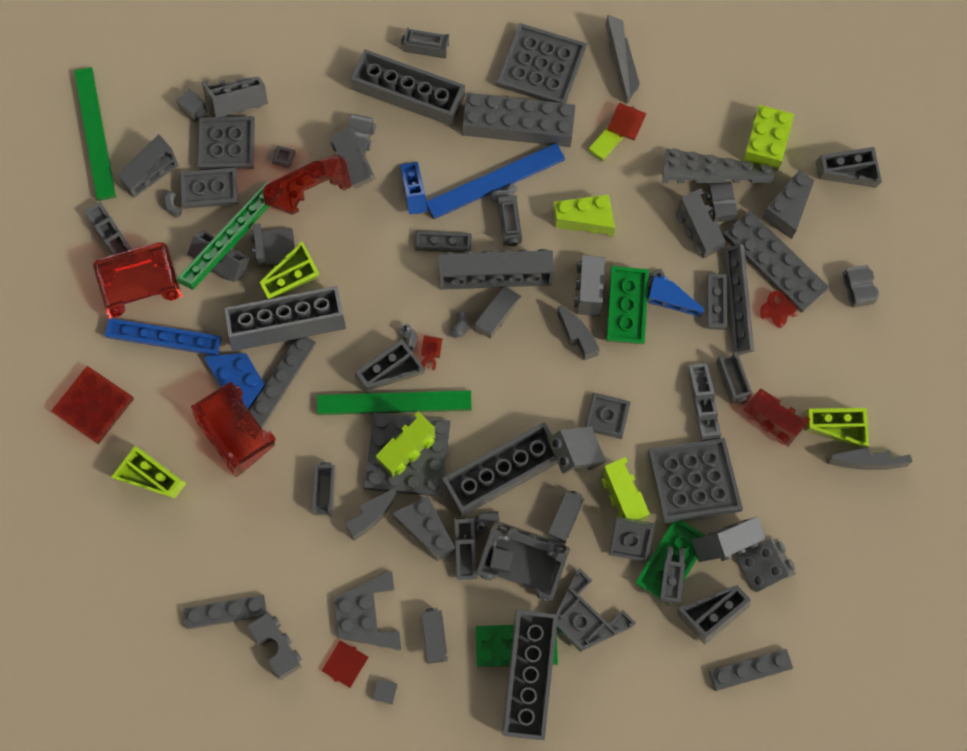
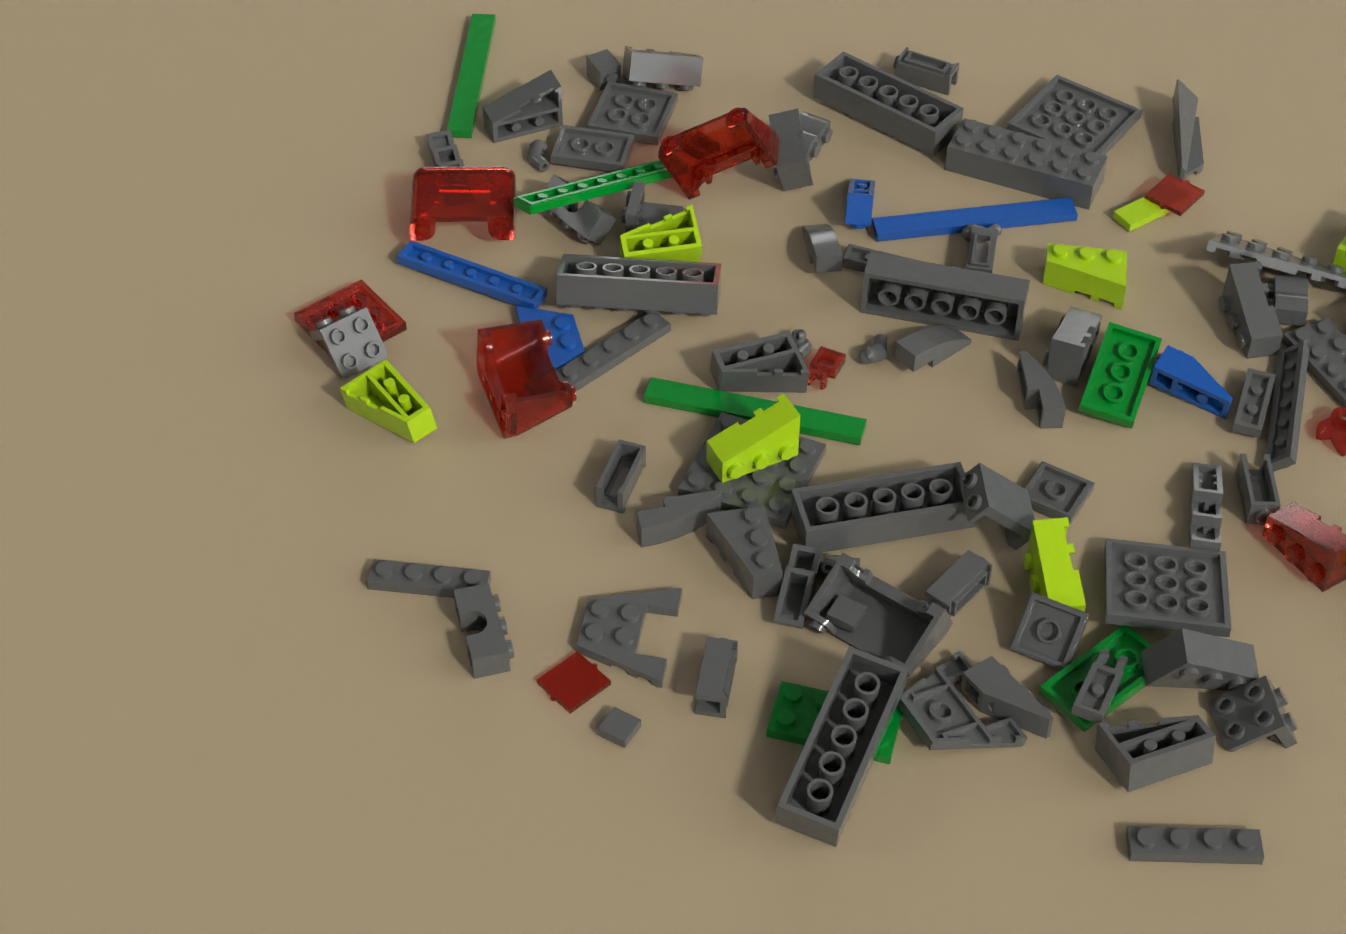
camera: 20 degrees right, 25 degrees down
(99, 426) = (351, 340): none -> bracket
(399, 239) = (823, 248): none -> dark grey slope
(612, 596) = (1001, 696): none -> dark grey slope

